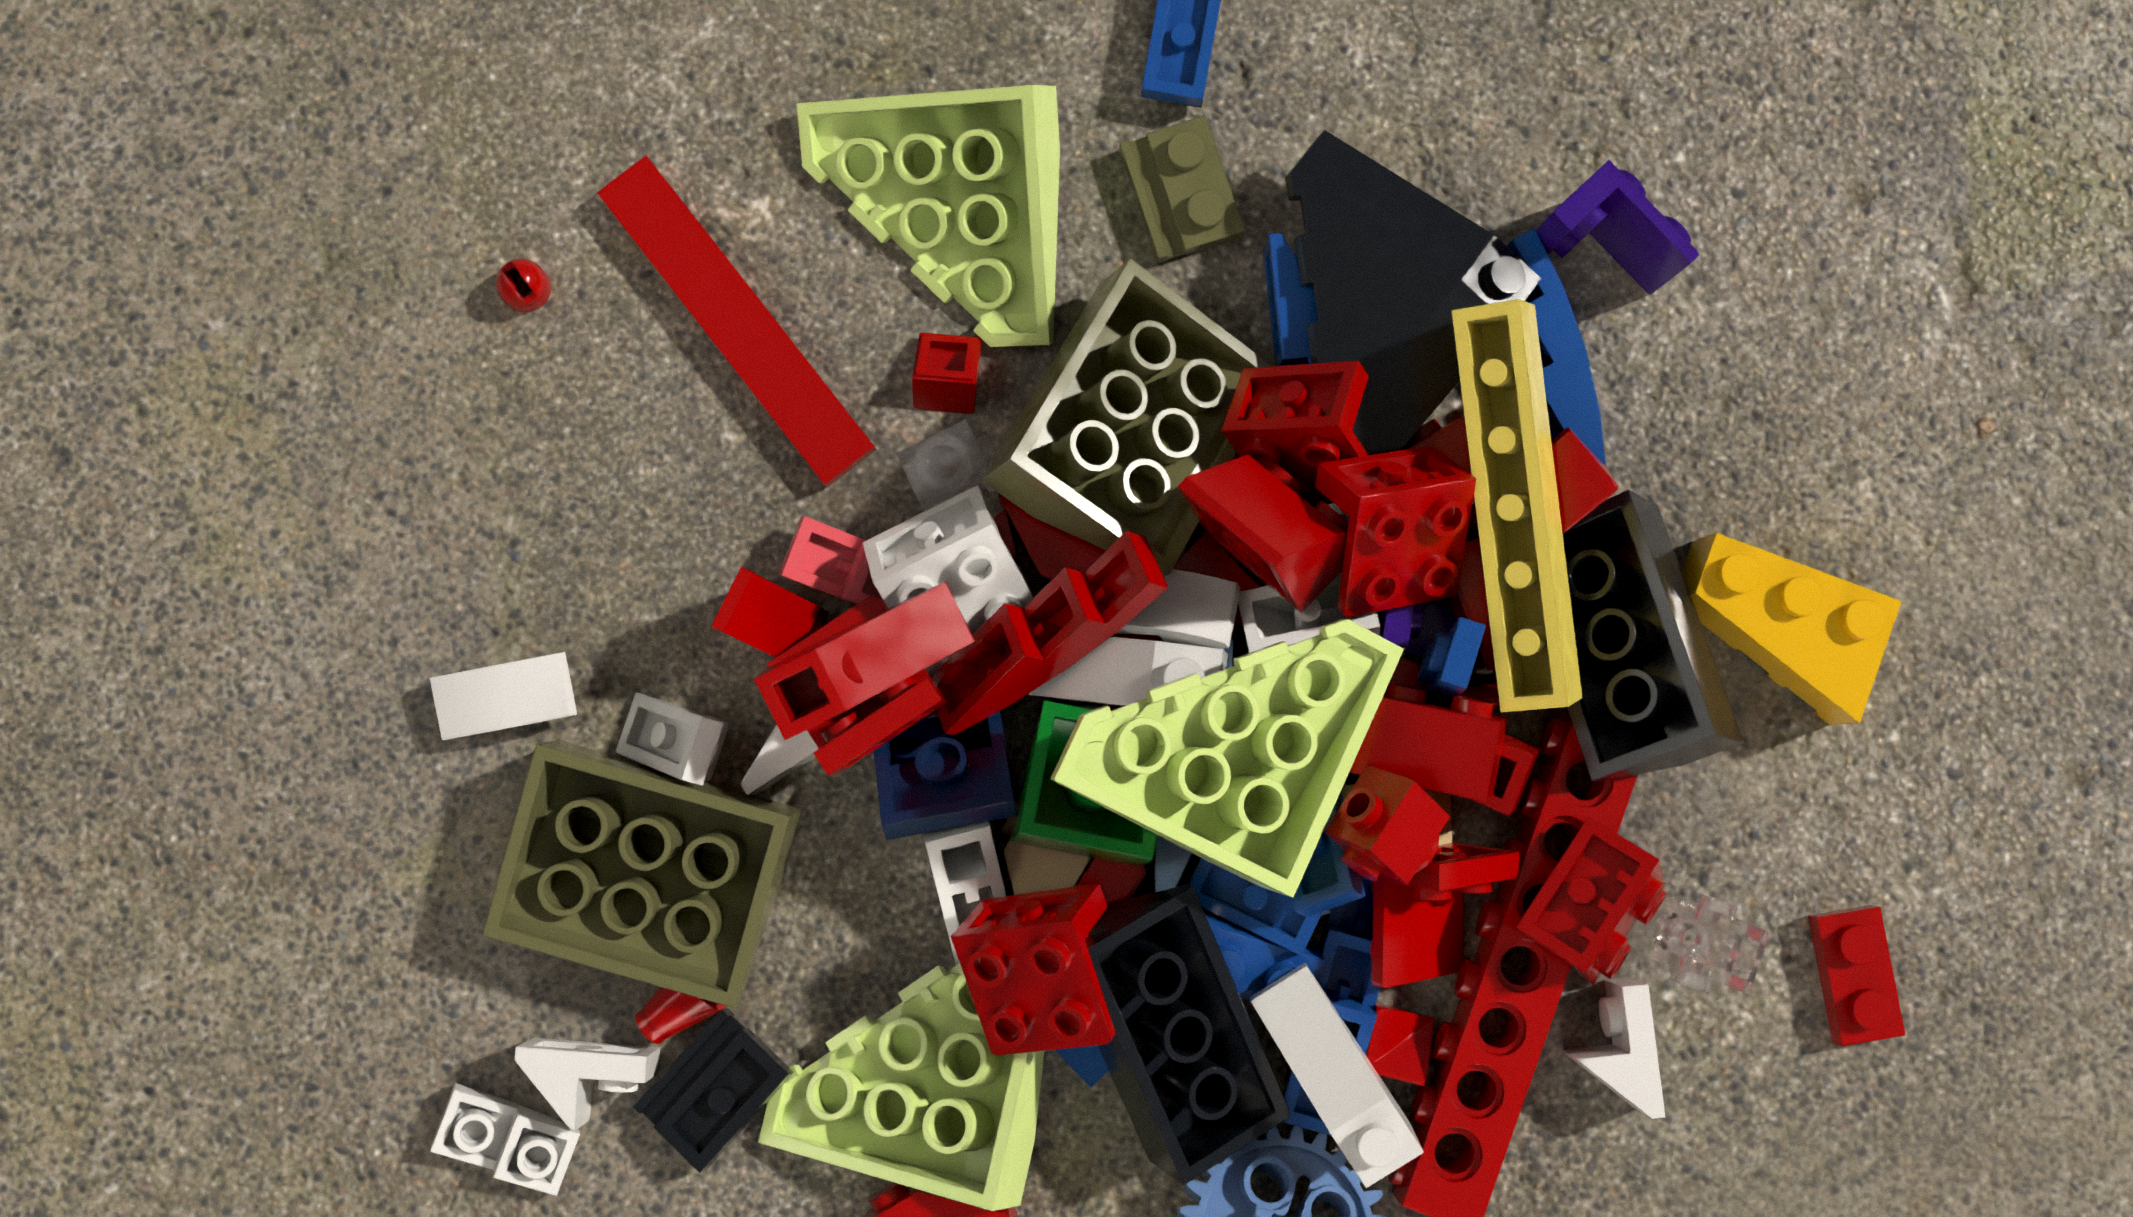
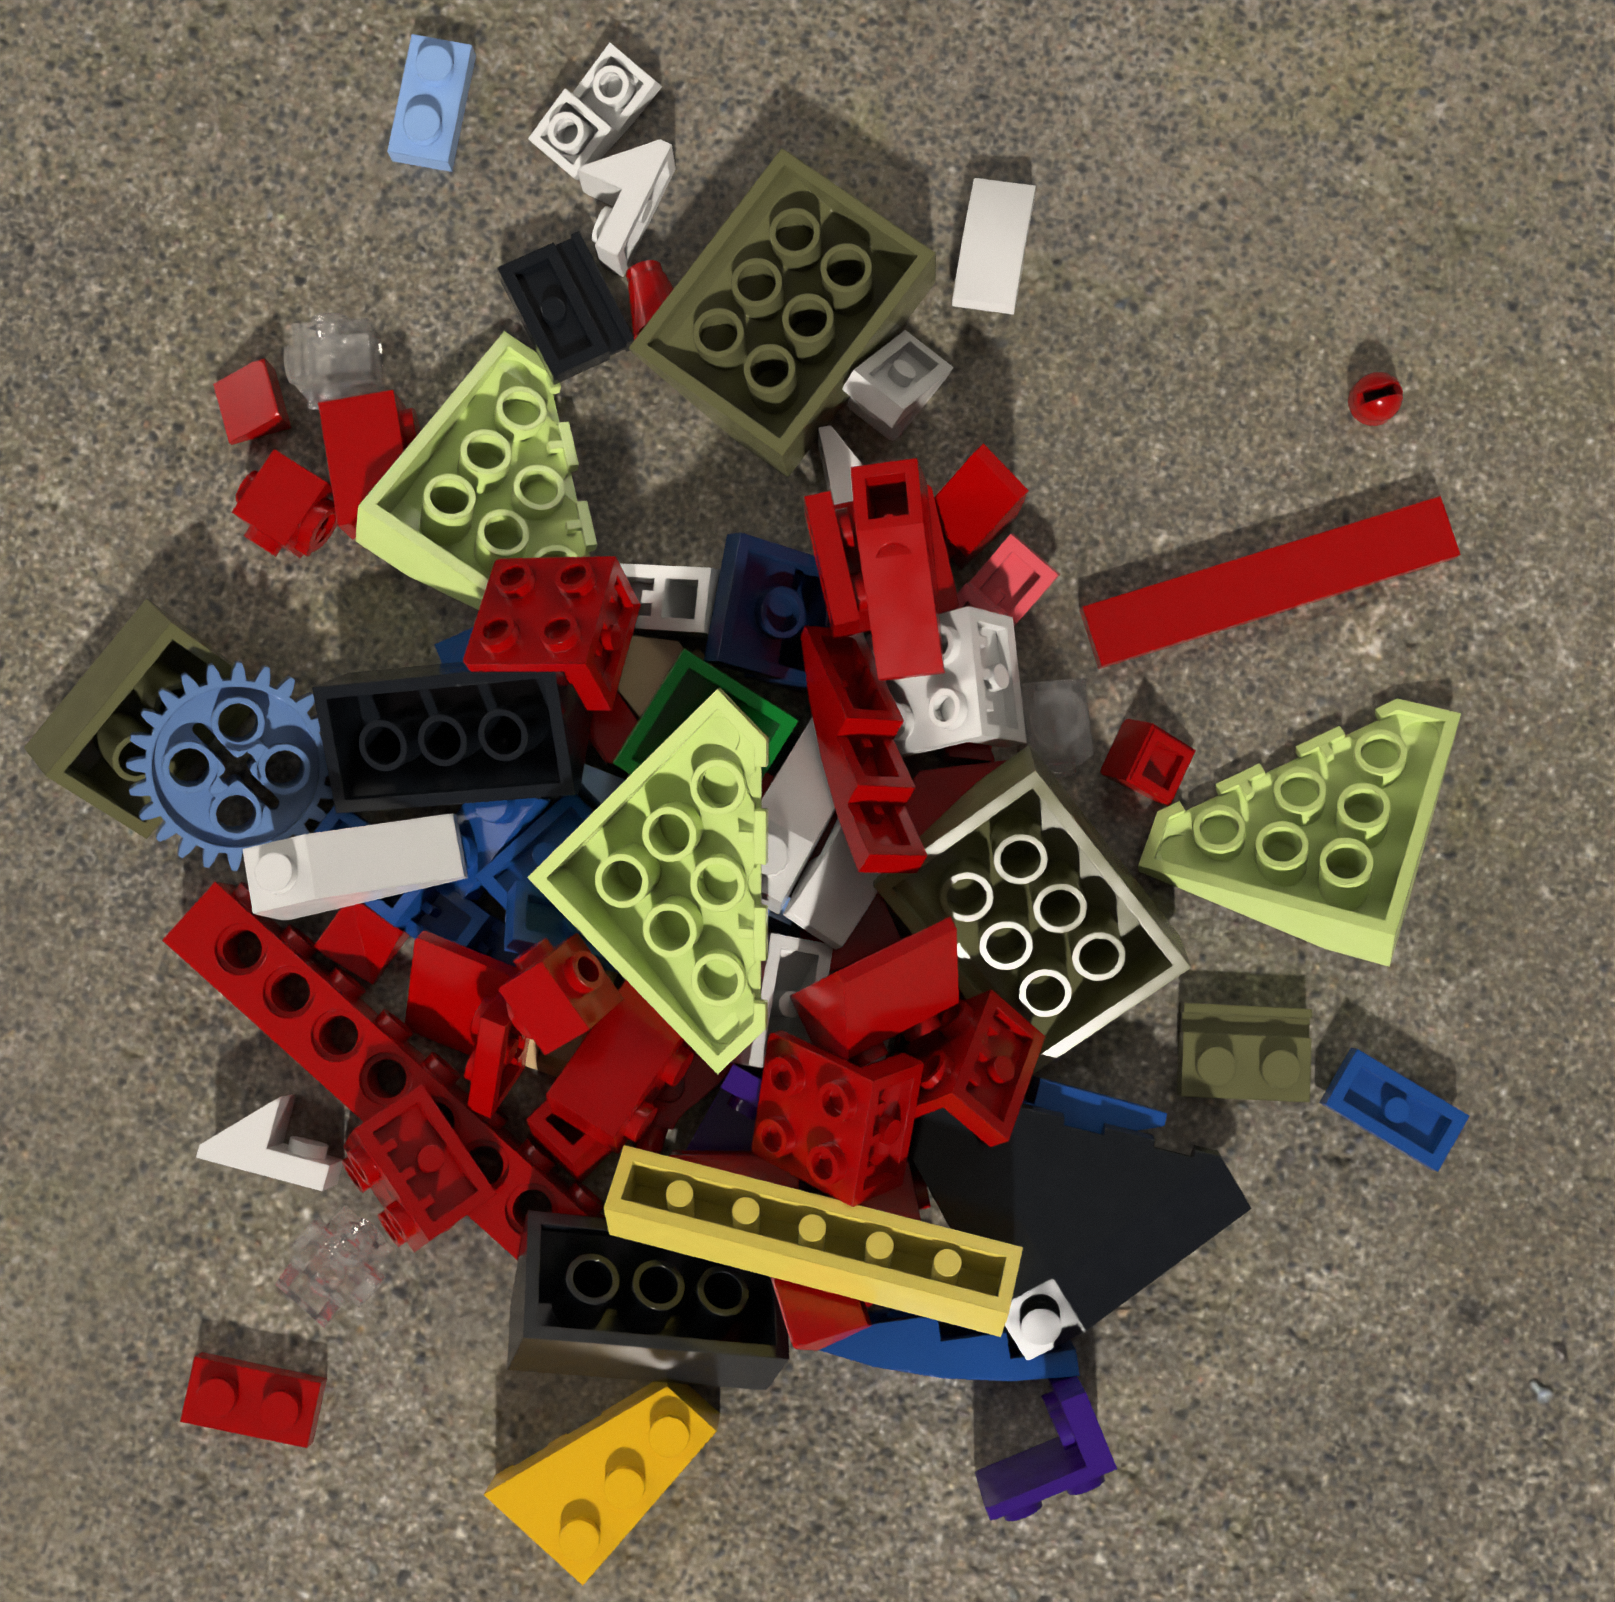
camera: 110 degrees right, 0 degrees up
(1450, 661) = (691, 1120): blue plate -> none

